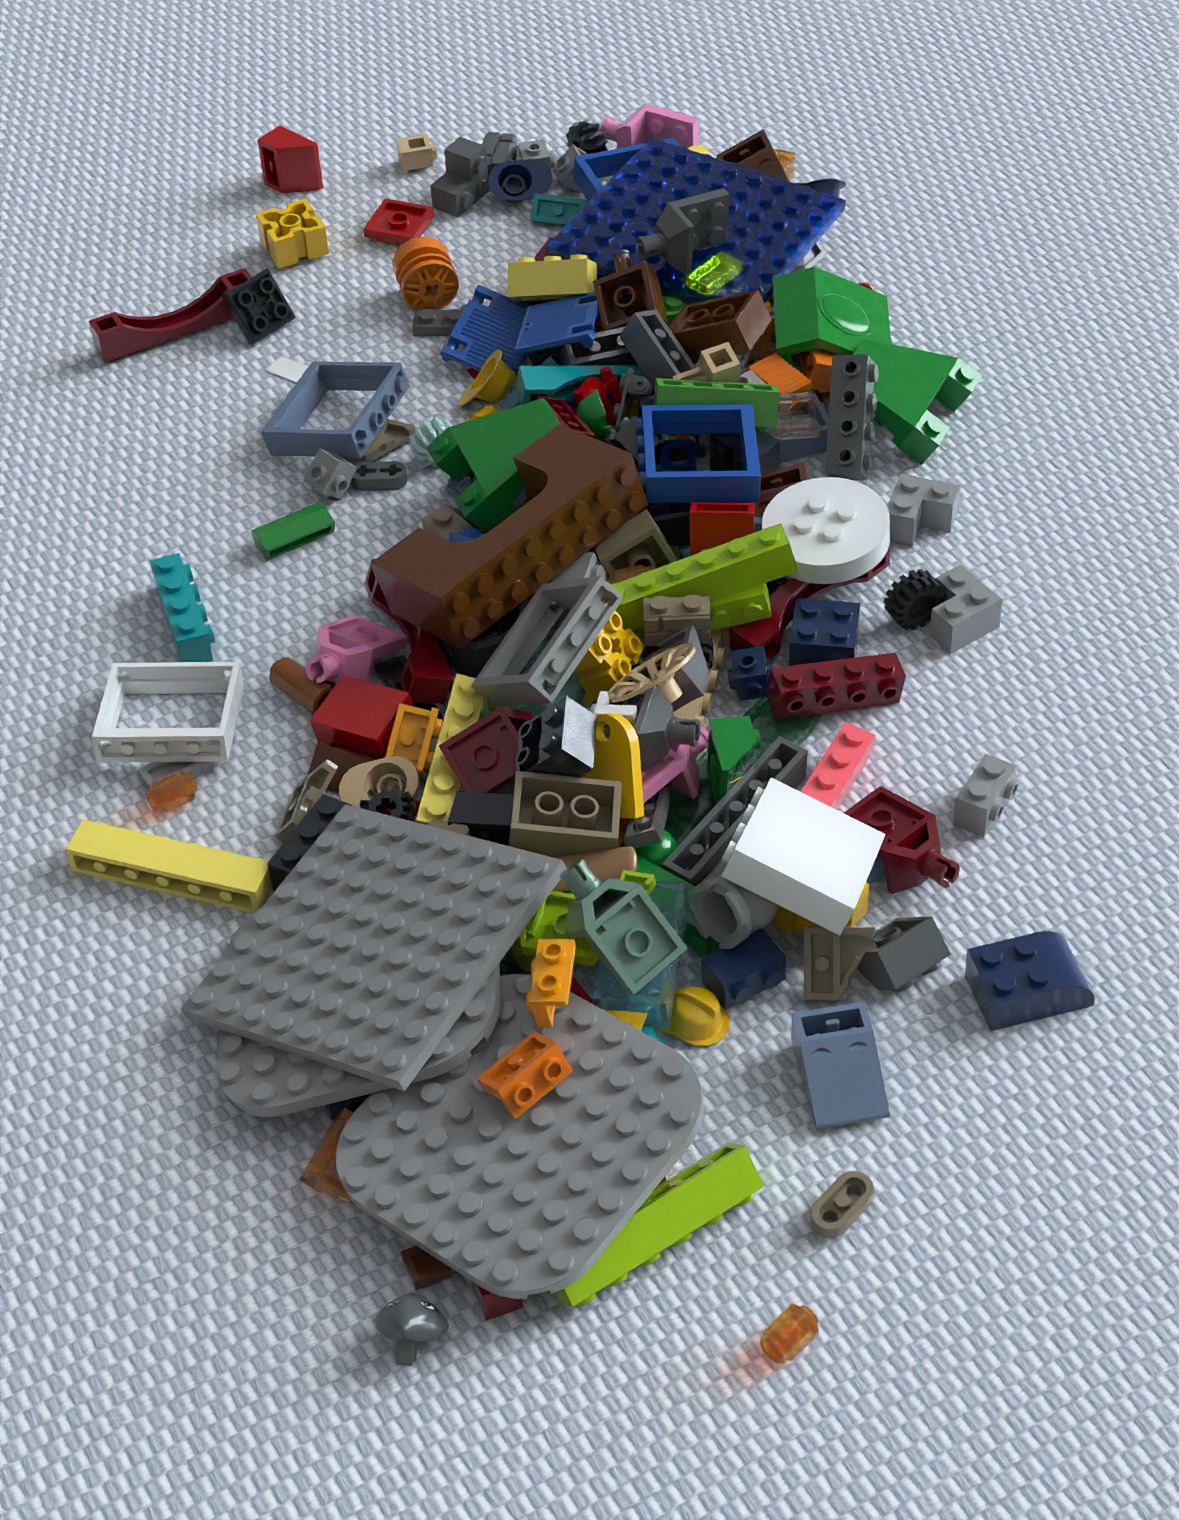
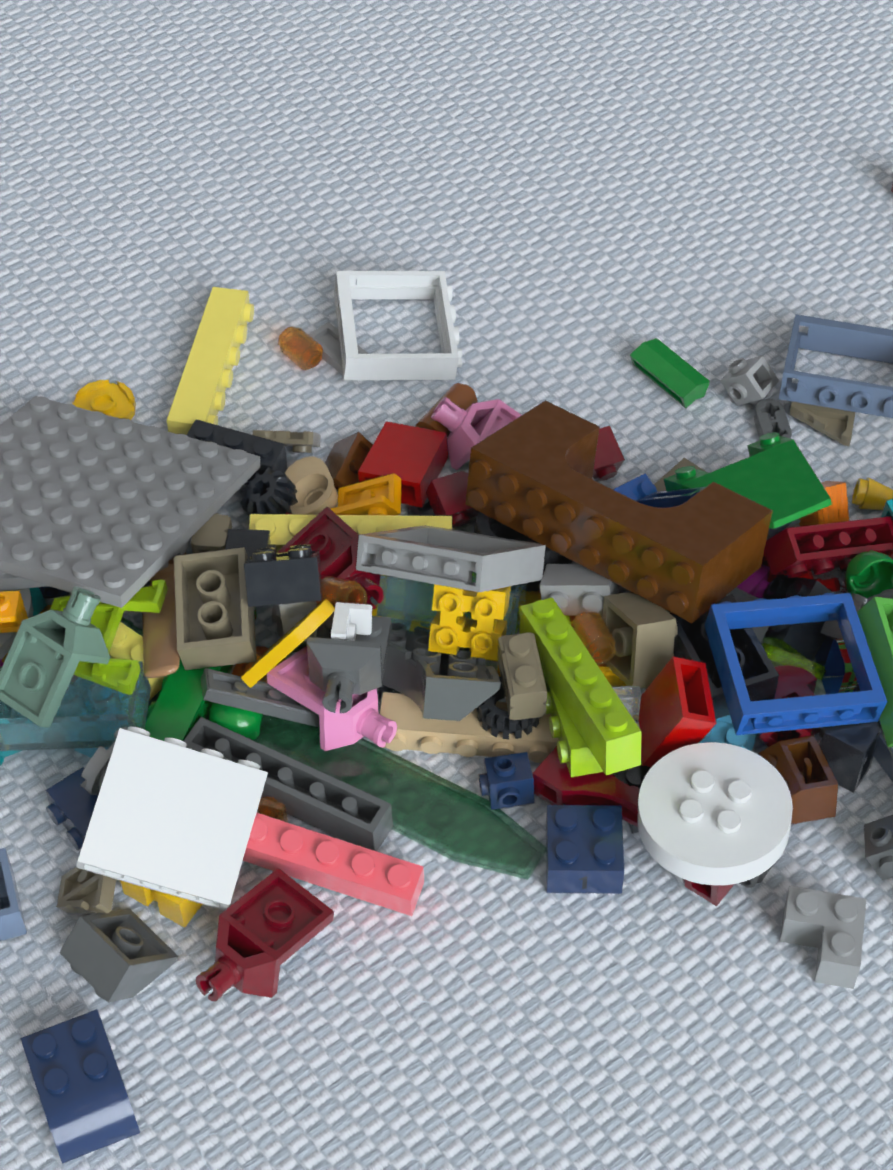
camera: 80 degrees right, 5 degrees up
(181, 609) = (533, 308): teal brick -> none
(188, 964) = (108, 398): none -> yellow tile
(423, 438) = (823, 453): light aqua gear -> none
(505, 499) = (669, 498): none -> dark blue tile
(662, 679) = (401, 666): tan wheel -> none
(697, 1017) = (40, 774): yellow piece -> none
(730, 752) = (346, 754): green slope -> none
(835, 685) = (496, 861): dark red brick -> none
(913, 599) = (652, 933): black tyre -> none
(967, 613) = (651, 998): light grey brick -> none
(985, 795) = (348, 1028): light grey brick -> none

